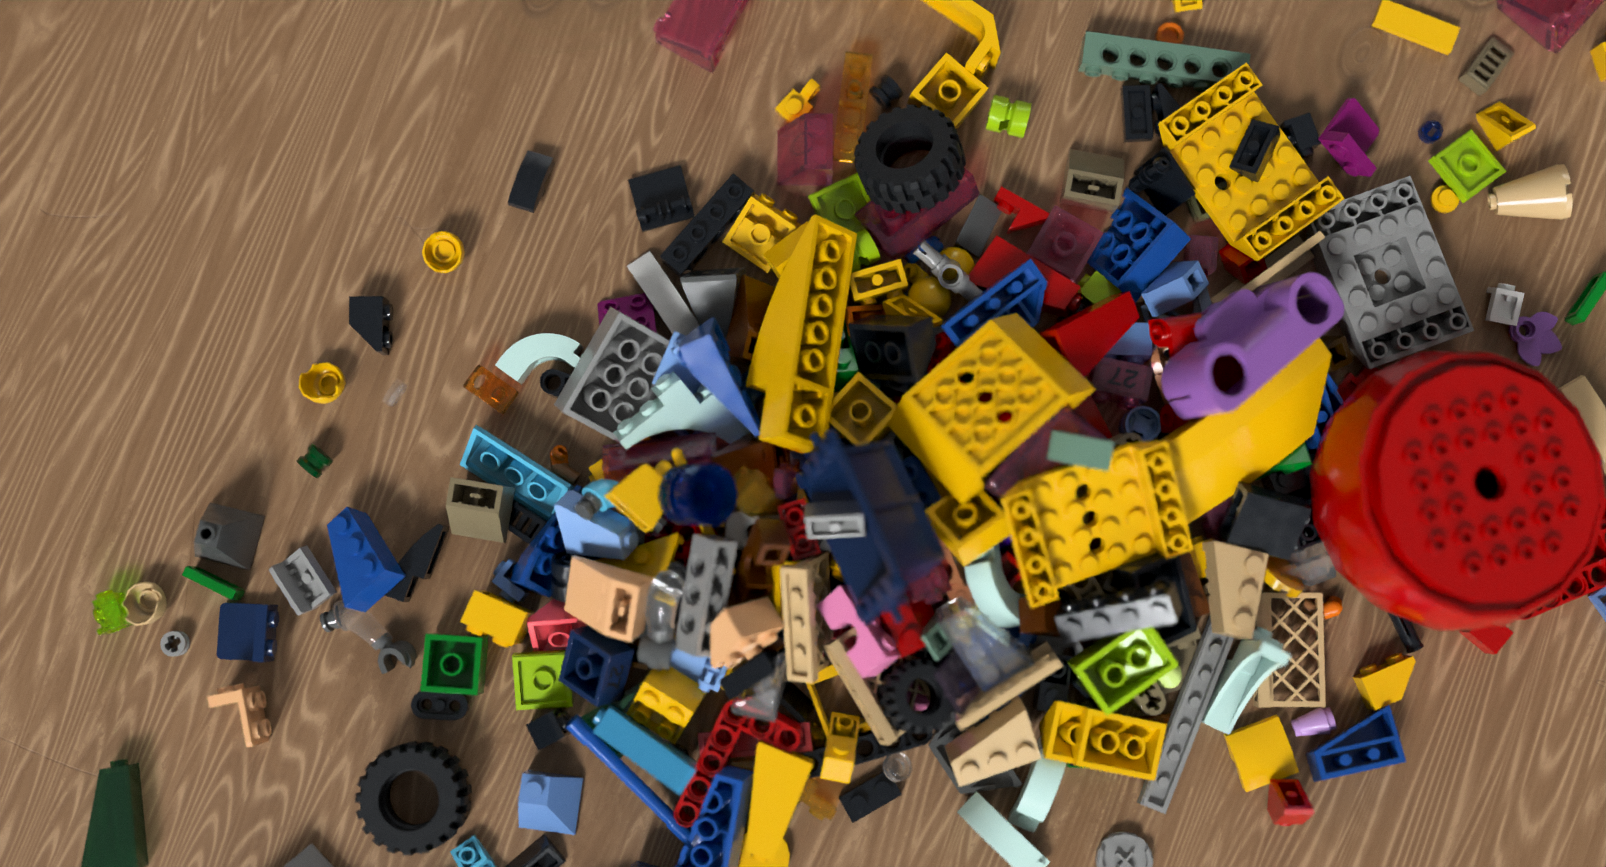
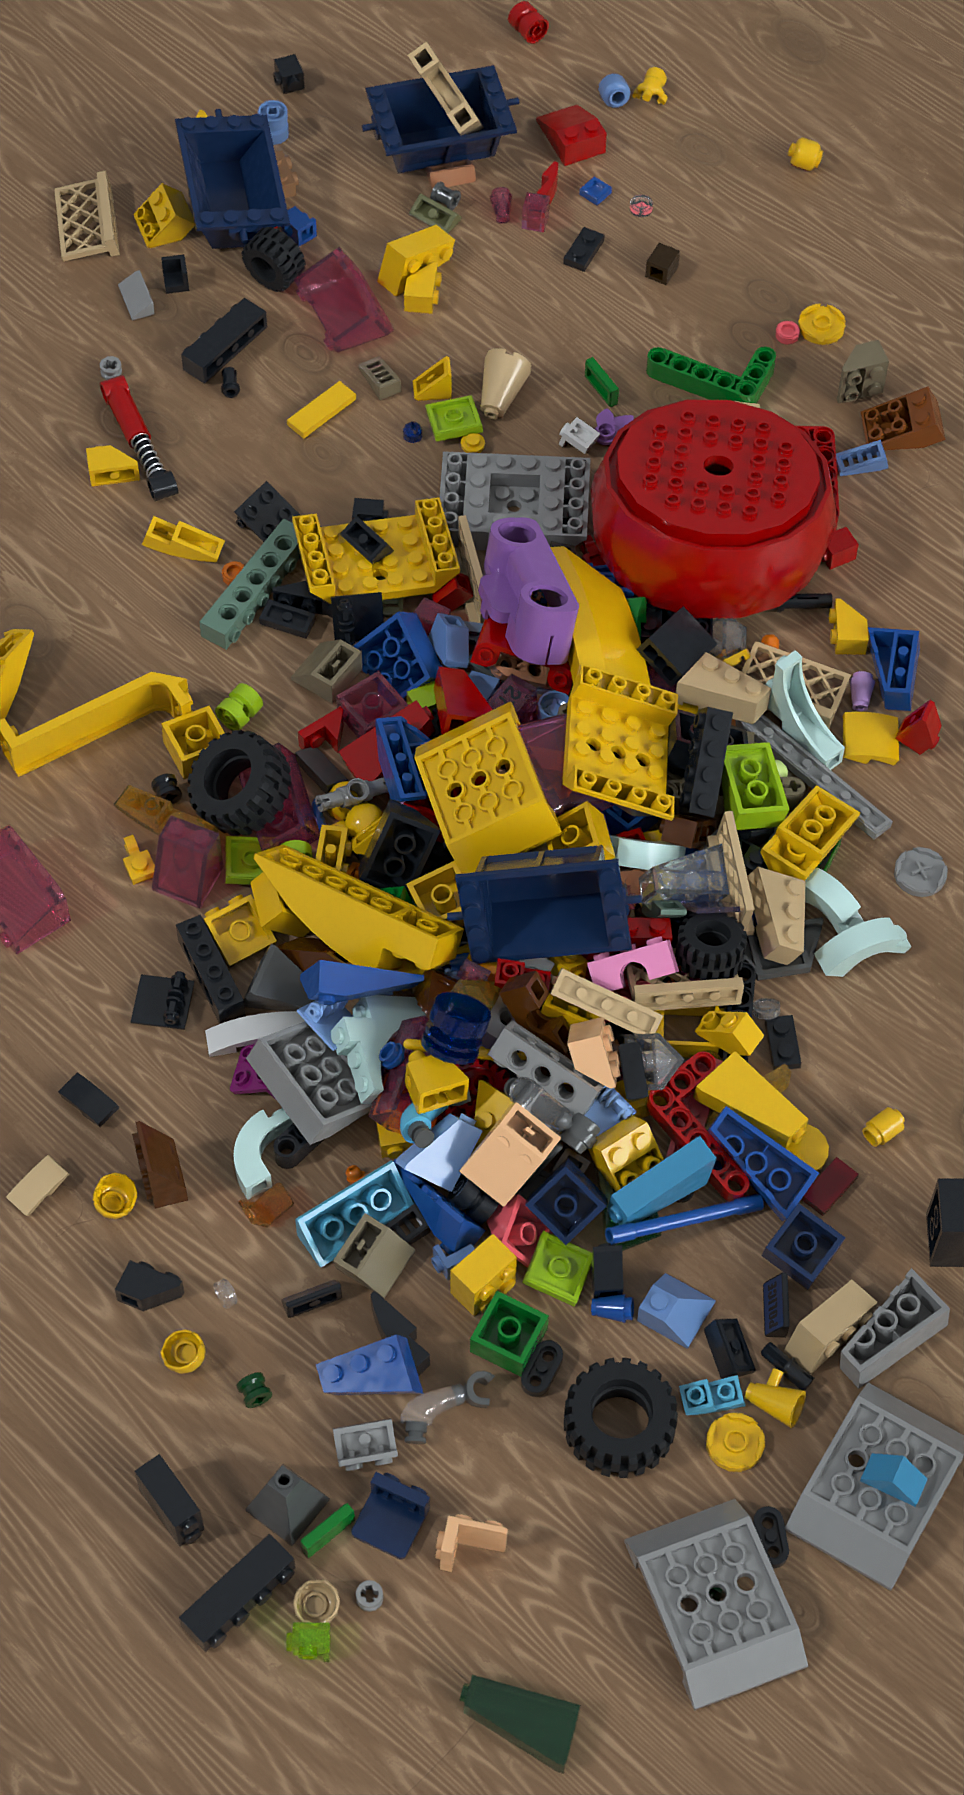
camera: 70 degrees left, 25 degrees down
(124, 532) = (237, 1593): none -> black brick
(176, 438) = (170, 1501): none -> black brick
(424, 469) = (312, 1298): none -> black slope
(428, 178) = (37, 1185): none -> tan slope
(479, 277) = (159, 1166): none -> reddish brown slope
(524, 747) = (613, 1307): none -> blue cone
(664, 441) = (392, 1055): none -> blue plate
(834, 520) = (529, 937): light grey slope -> none
(1080, 450) = (558, 727): sand green slope -> none
(1255, 32) = (264, 511): none -> black hinge
(1350, 137) = (391, 483): magenta bracket -> none

